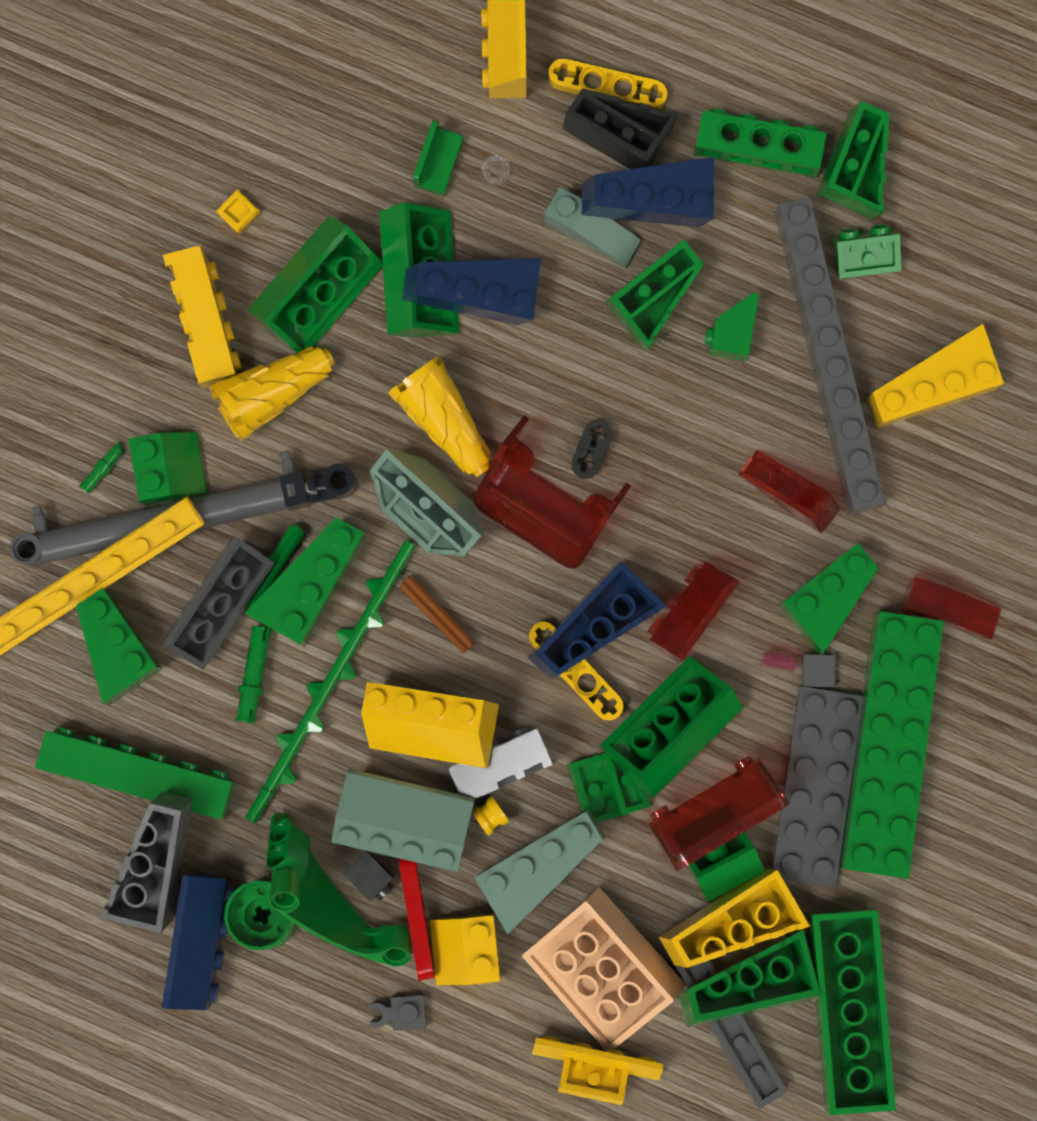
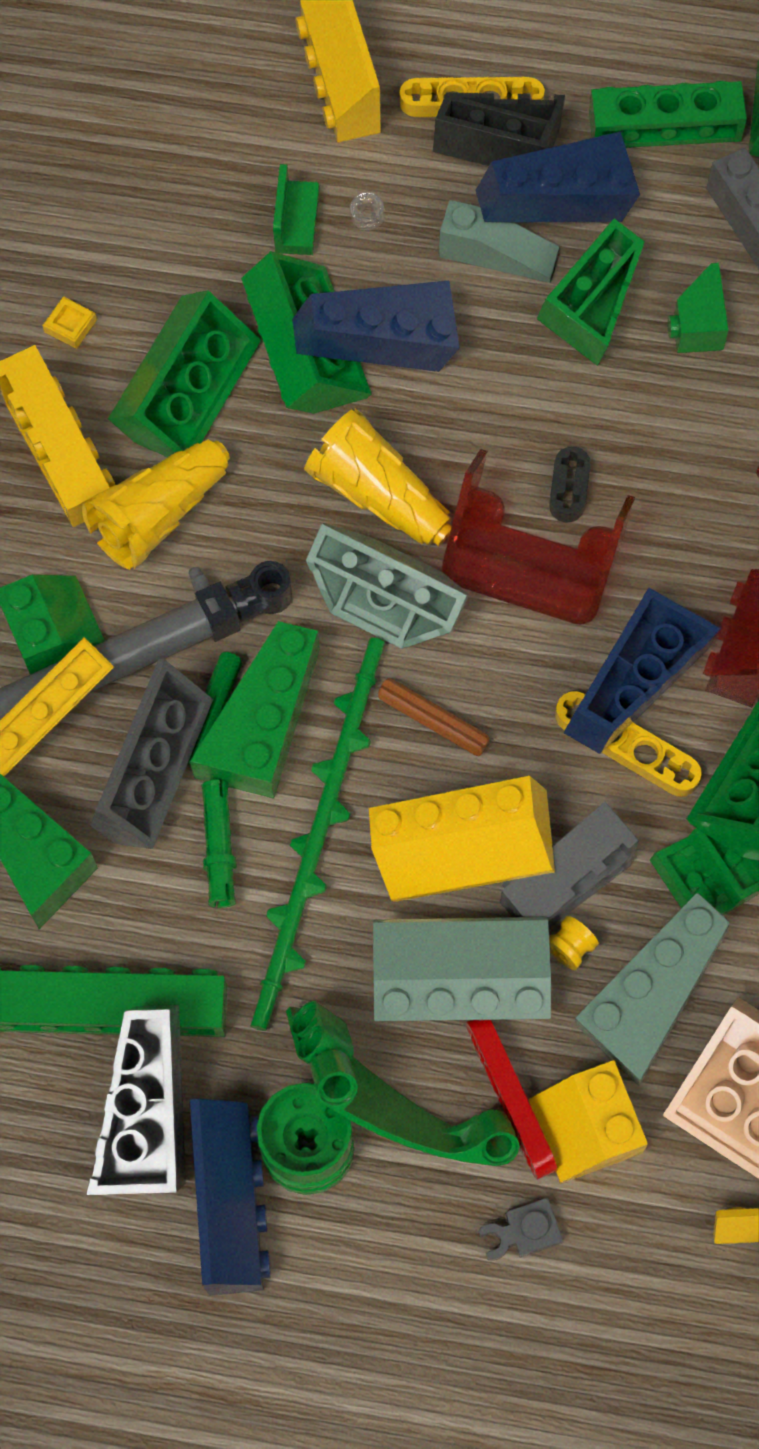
camera: 15 degrees left, 15 degrees down
(370, 876) = (435, 1058): pearl dark grey brick -> none

